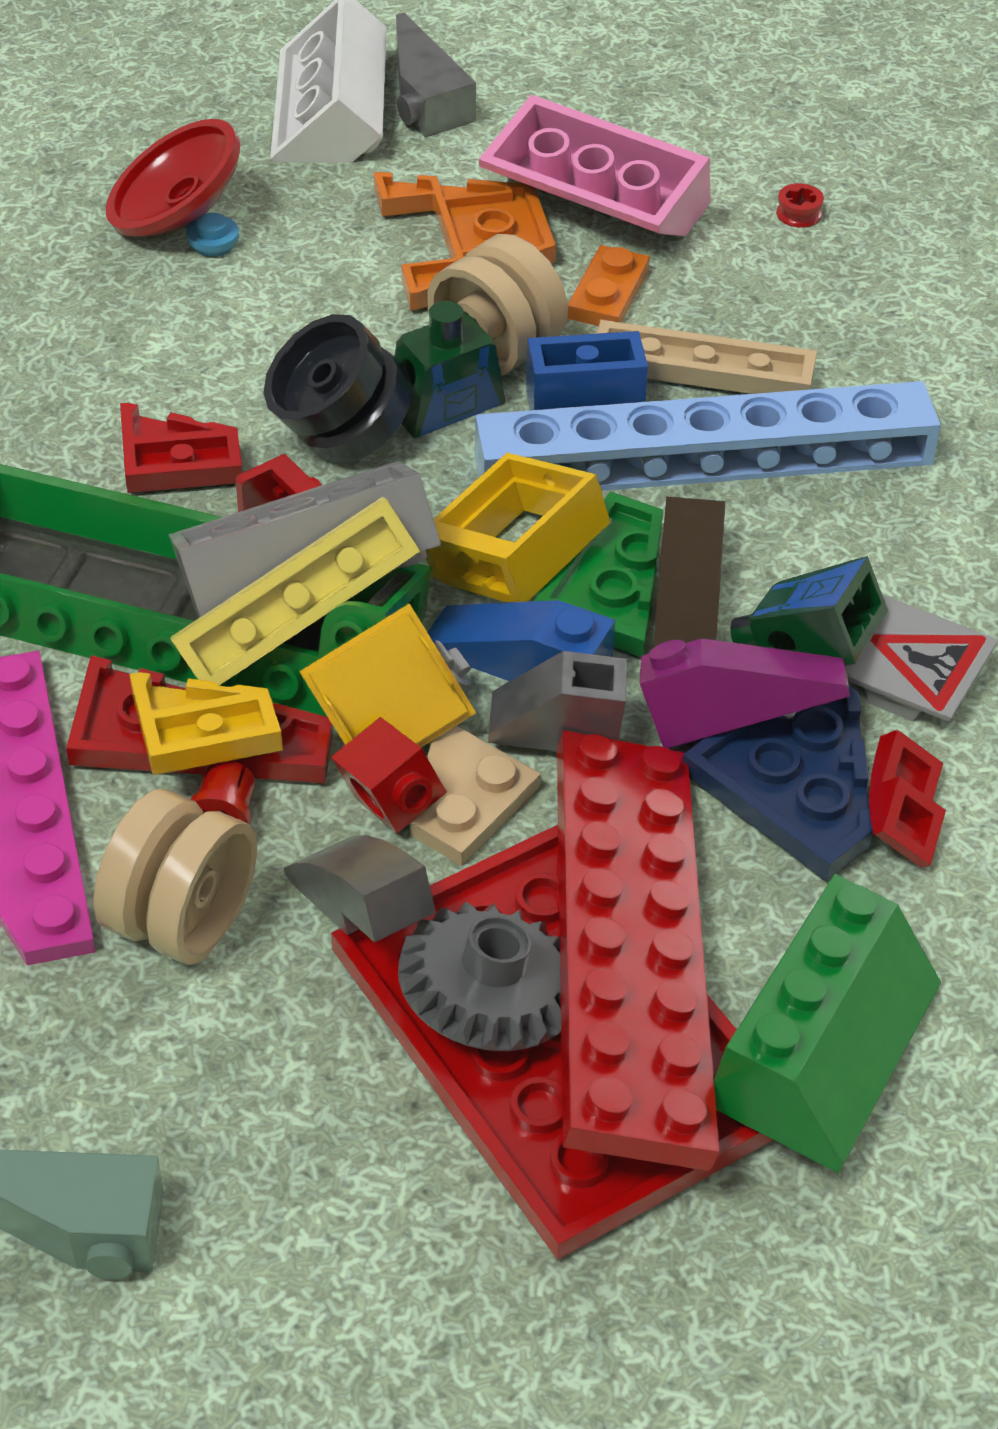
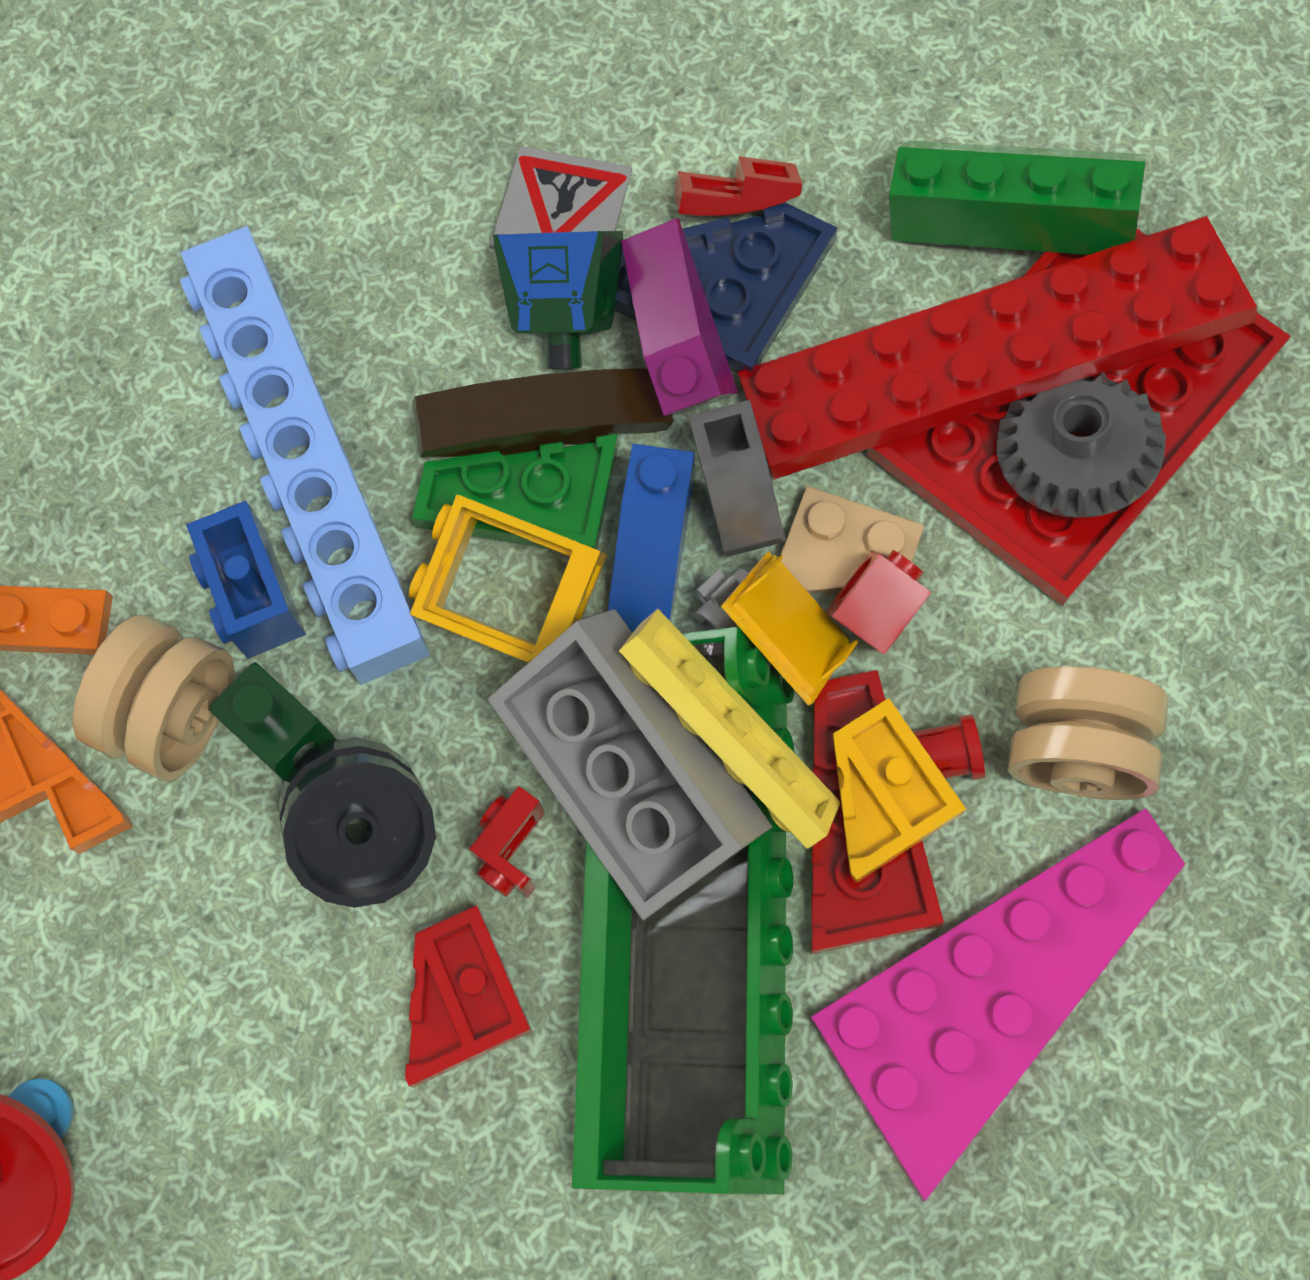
camera: 100 degrees left, 25 degrees up
(365, 886) = (1025, 579): flat silver slope -> none
(721, 360) = (162, 487): tan plate -> none

